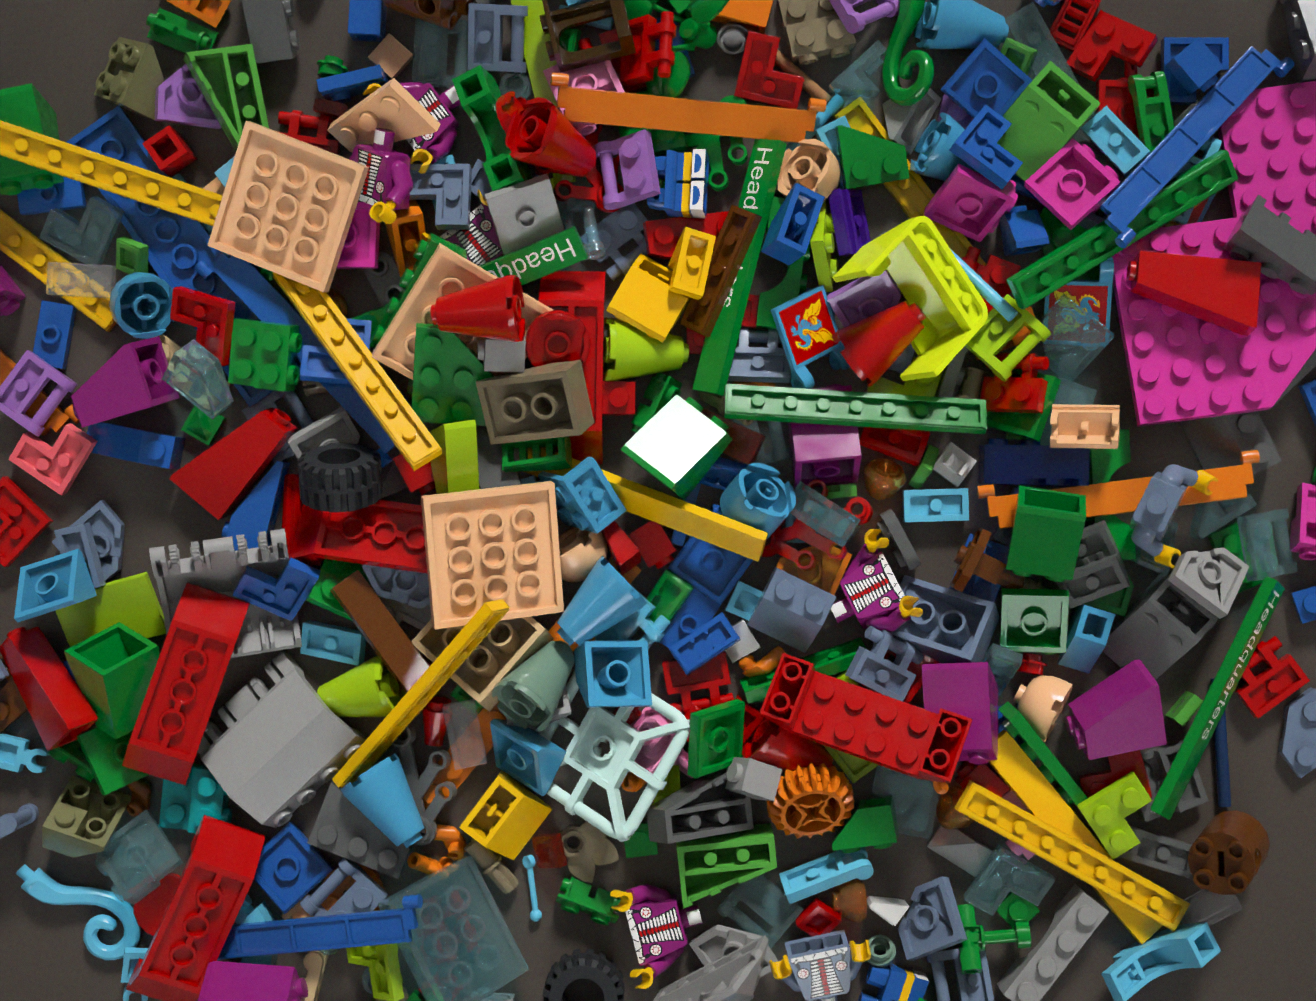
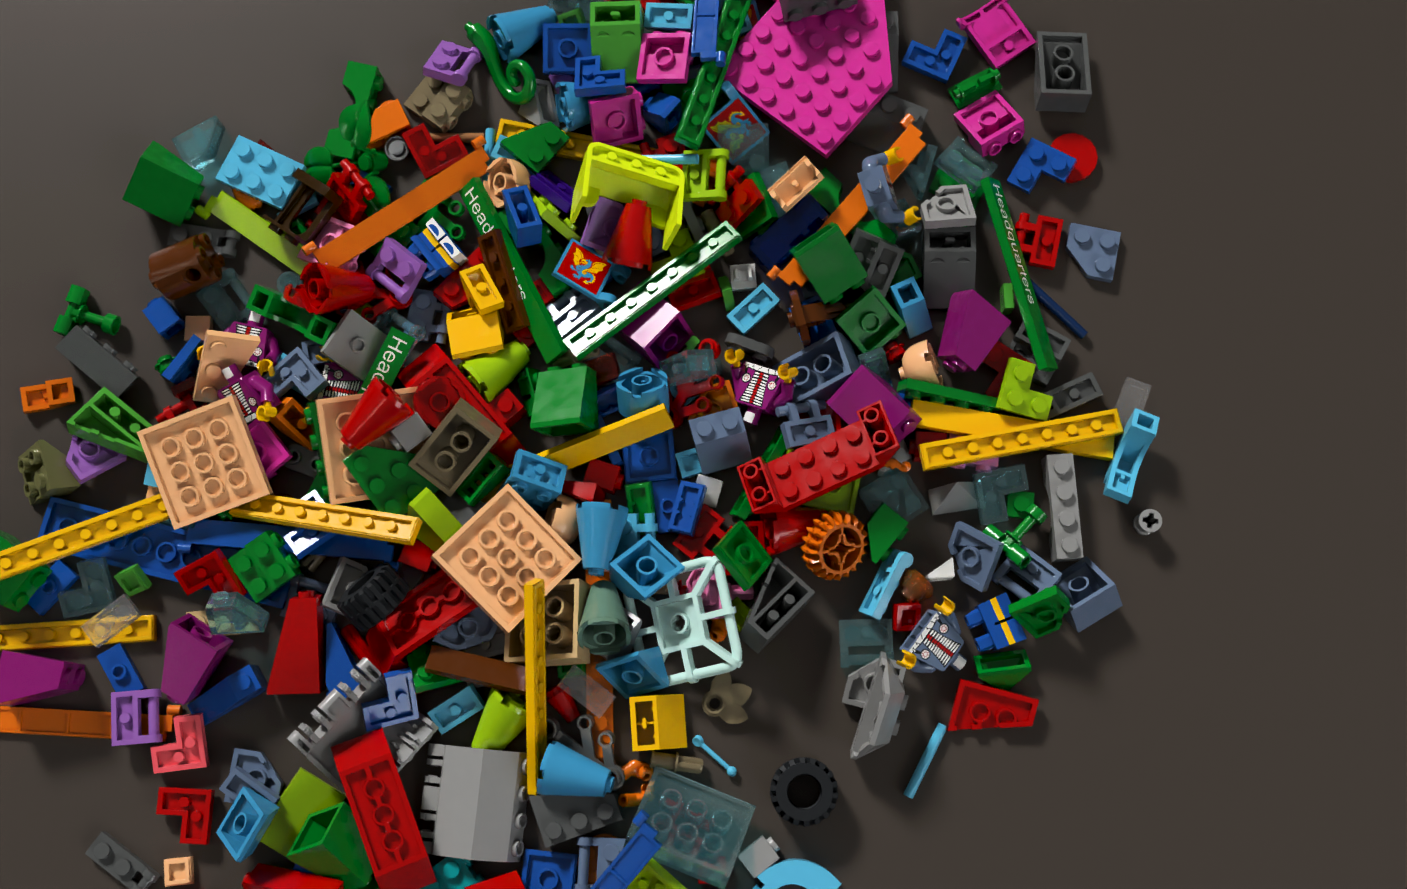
camera: 35 degrees left, 10 degrees down
(141, 304) = (161, 601): dark azure cylinder -> none
(169, 151) = (104, 495): red brick -> none
(179, 32) = (52, 423): green hinge -> none
(202, 426) = (262, 645): green tile -> none
(486, 37) = (247, 268): sand blue plate -> none
(549, 850) = (704, 721): clear red tile -> none
(577, 900) = (746, 738): green hinge -> none
(639, 843) = (755, 665): green plate -> none
(656, 928) = (811, 709): torso -> none
(723, 860) = (813, 630): bright green wedge -> none
(753, 778) = (787, 559): light grey brick -> none
(763, 666) = (736, 491): orange arm -> none
(854, 80) = (489, 110): clear light blue slope -> none
(881, 942) = (963, 602): sand green plate -> none
(883, 478) = (708, 320): clear orange cone -> none
(947, 815) = (927, 480): clear orange cone -> none
(1203, 287) = (789, 50): red slope -> none
(1228, 853) = (1108, 355): reddish brown cylinder -> none

